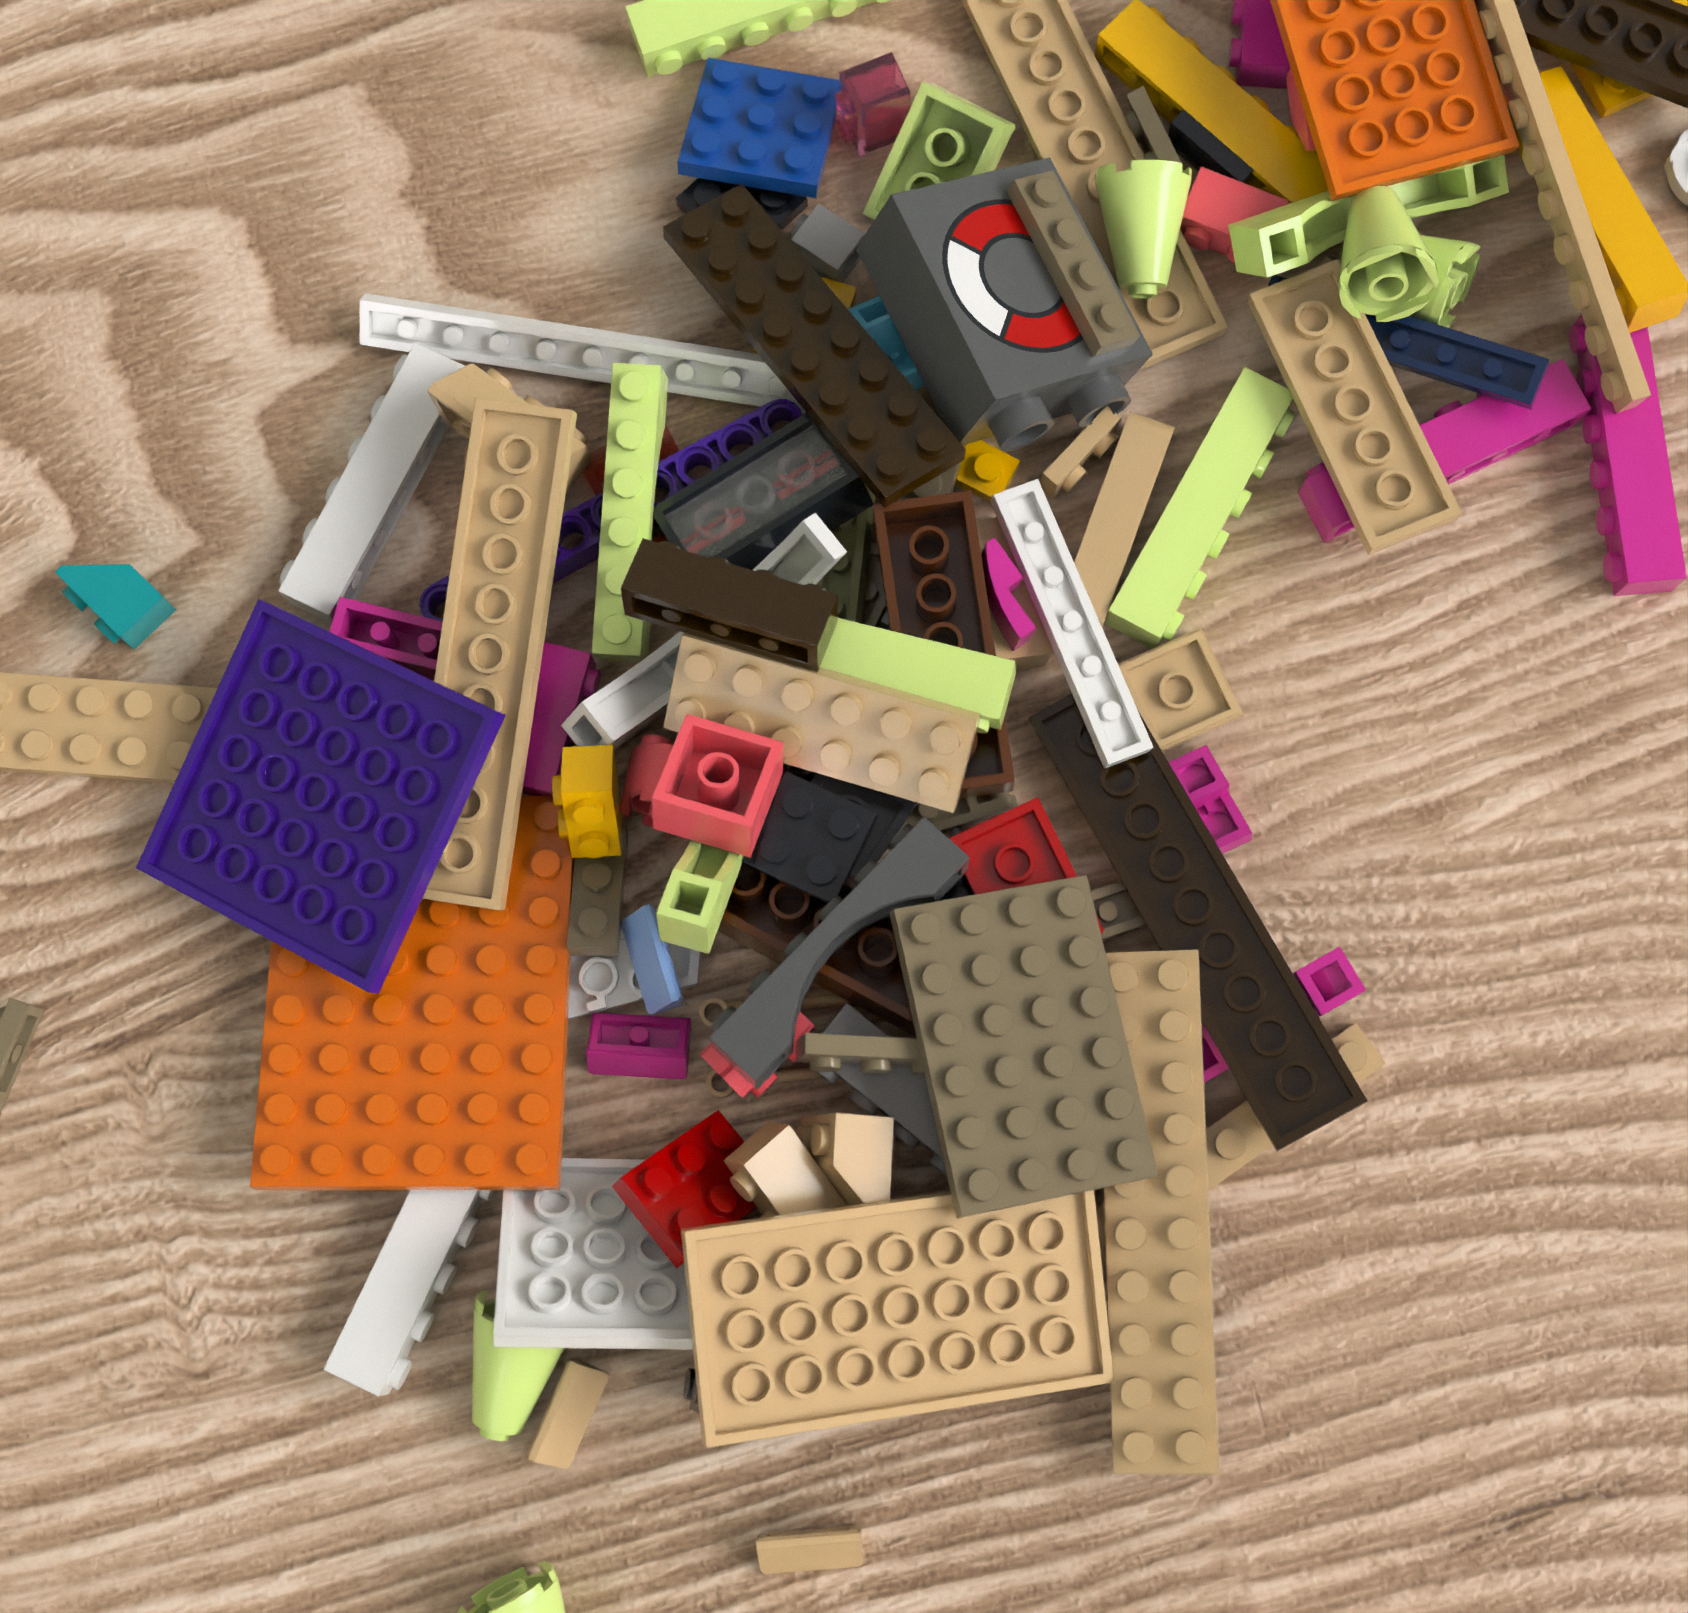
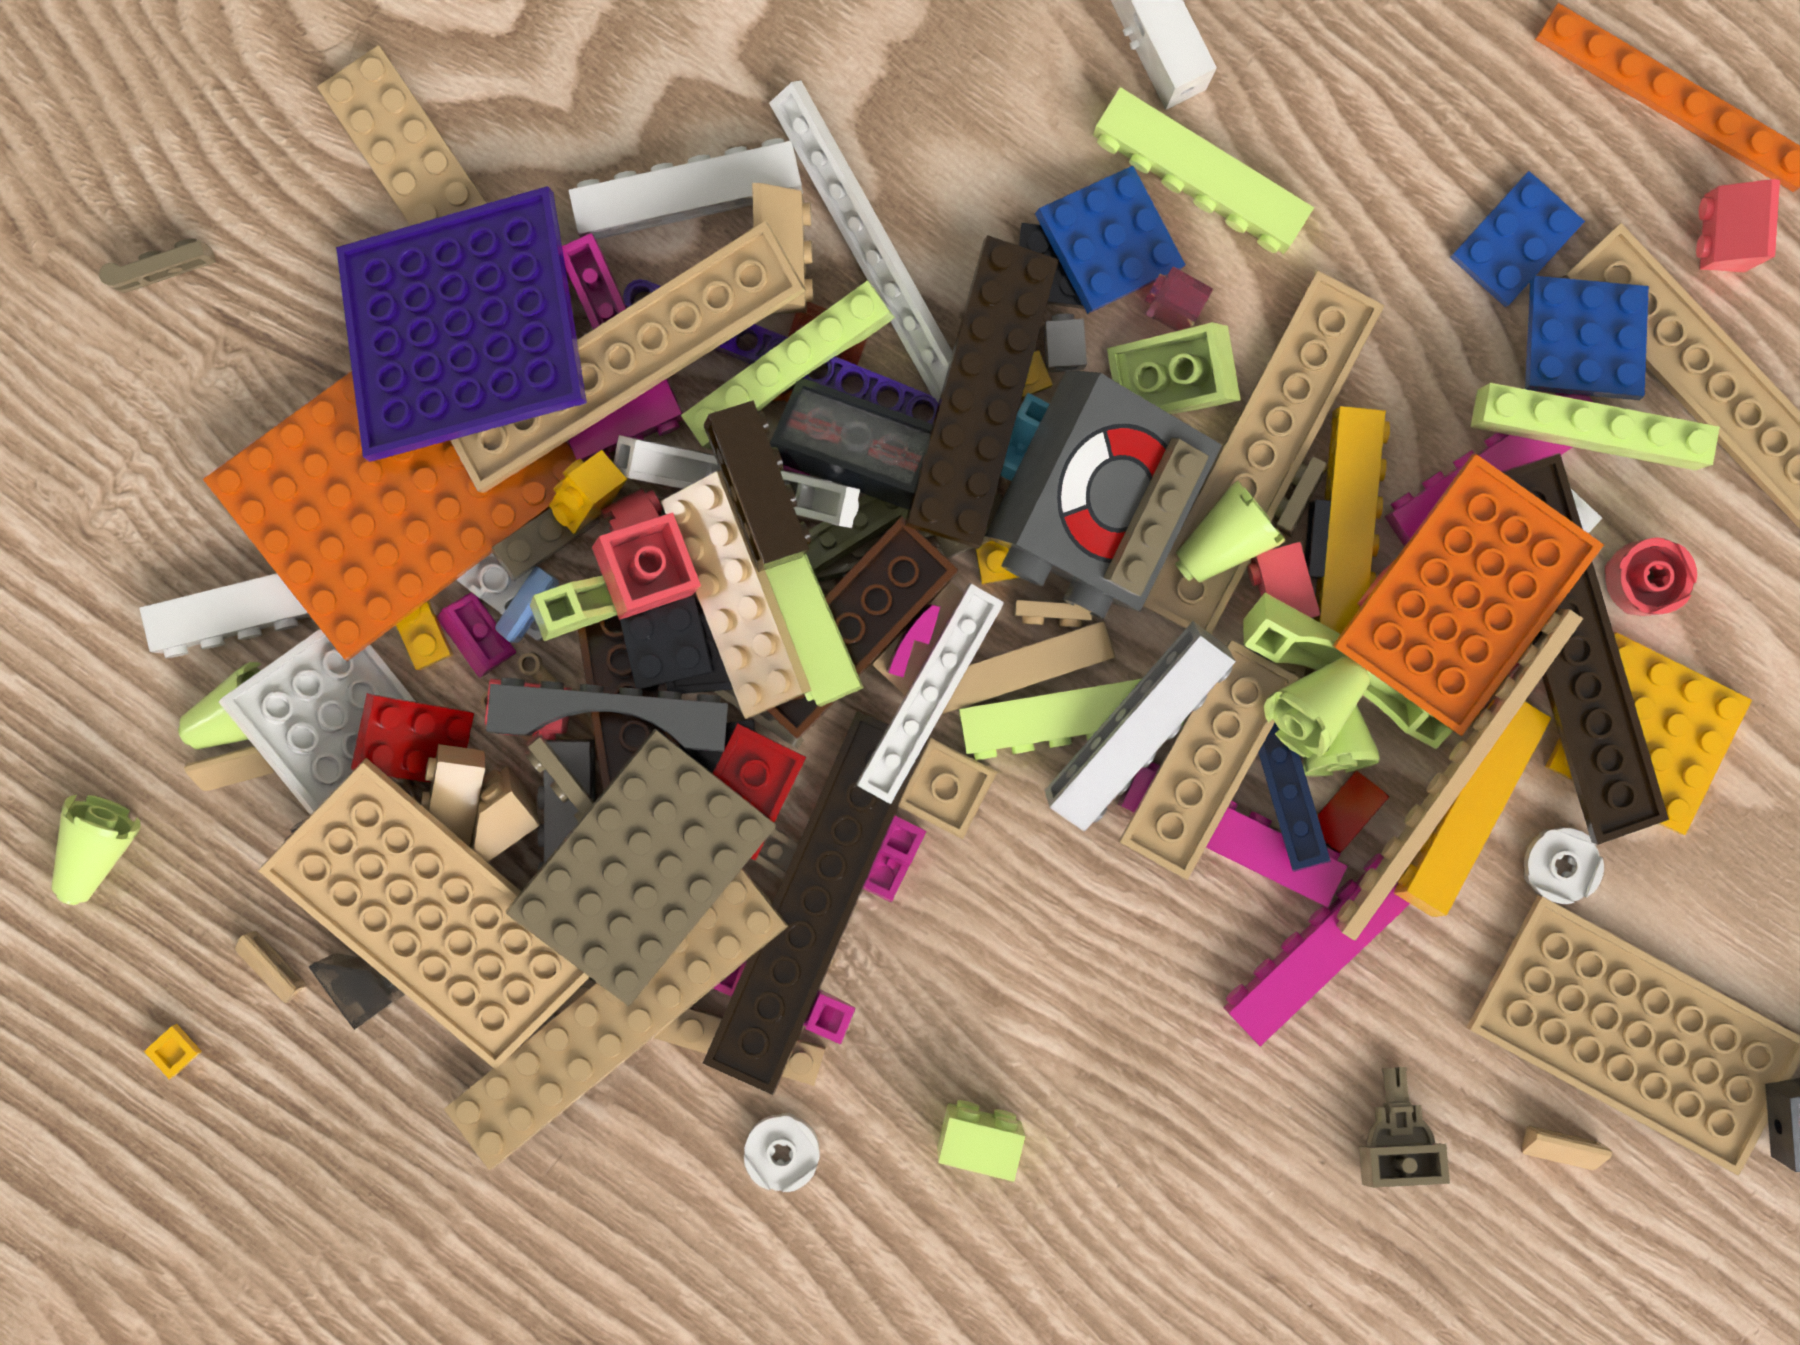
camera: 50 degrees right, 10 degrees up
(120, 597) = (489, 94): teal slope -> none
(599, 1101) = (424, 637): none -> yellow plate
(912, 1455) = (355, 987): none -> clear smoke slope
(1267, 444) = (1140, 726): none -> brick
(1453, 1132) = (781, 1175): none -> white plate
(1505, 314) = (1350, 811): none -> red slope
(1579, 930) = (981, 1140): none -> yellowish green brick

